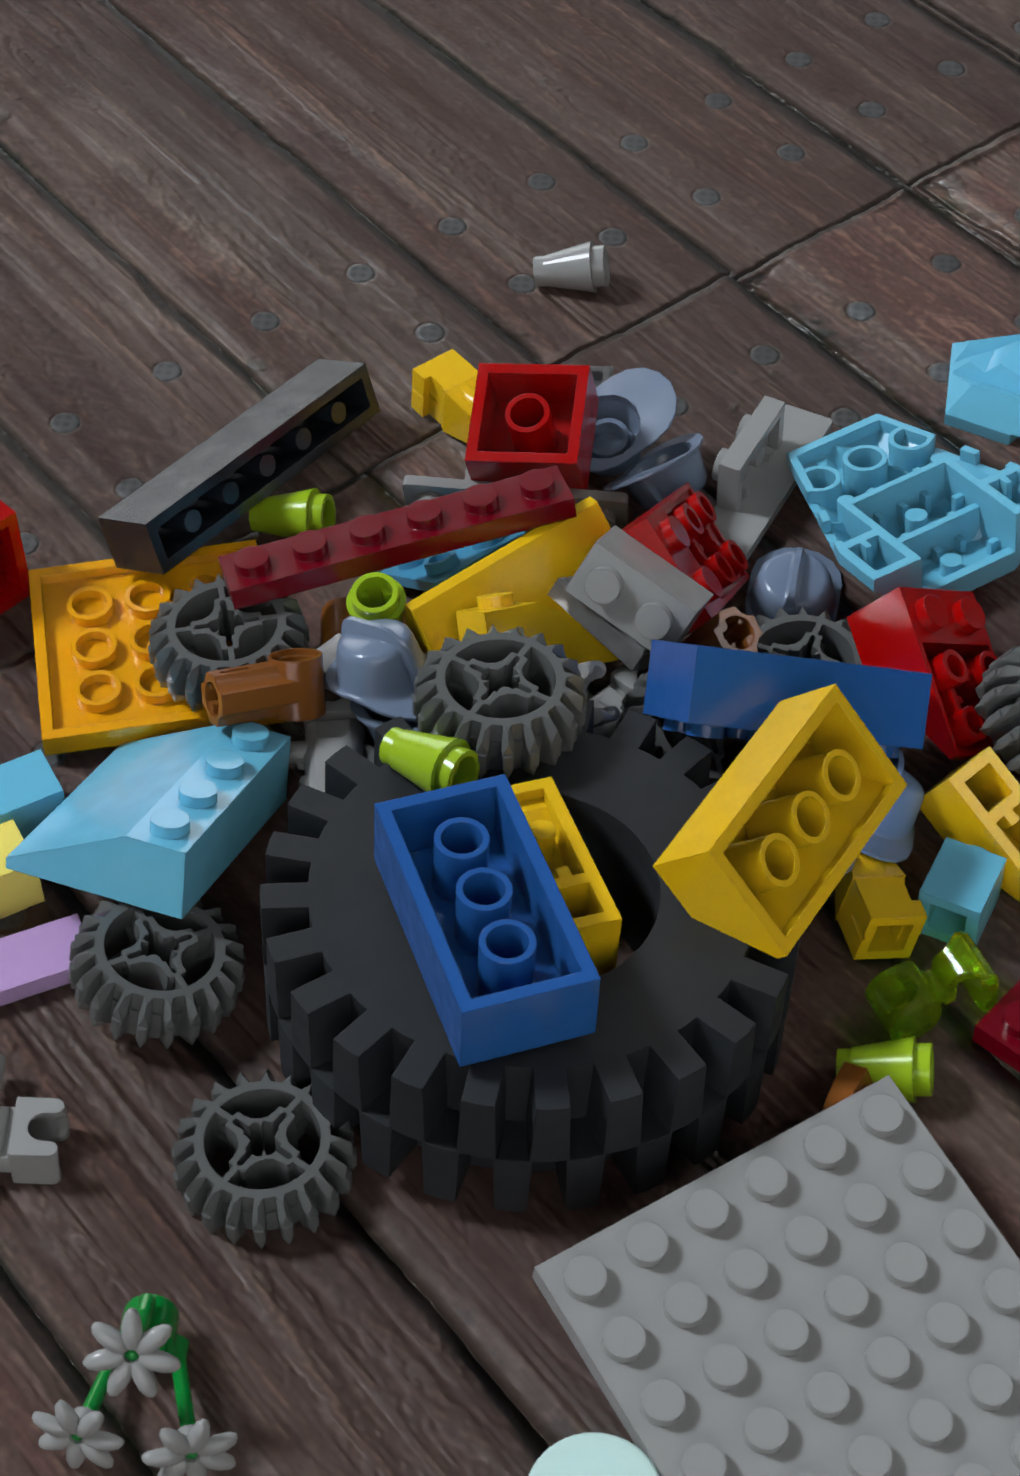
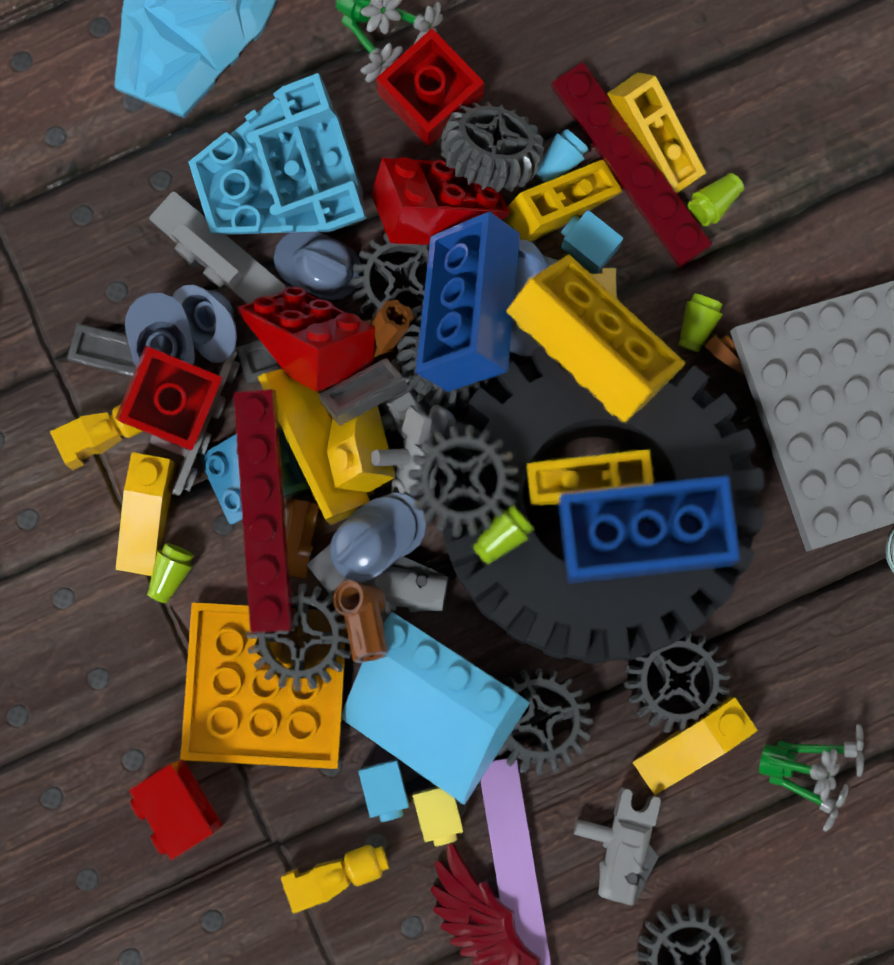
camera: 80 degrees left, 35 degrees up
(166, 1209) = (695, 746): none -> yellow slope
(238, 466) = (128, 599): black brick -> none
(372, 469) = (144, 512): none -> yellow slope
(376, 597) = (325, 541): lime cone -> none
(638, 590) = (361, 368): light grey brick -> none
(911, 999) = (656, 294): clear neon green leg -> none

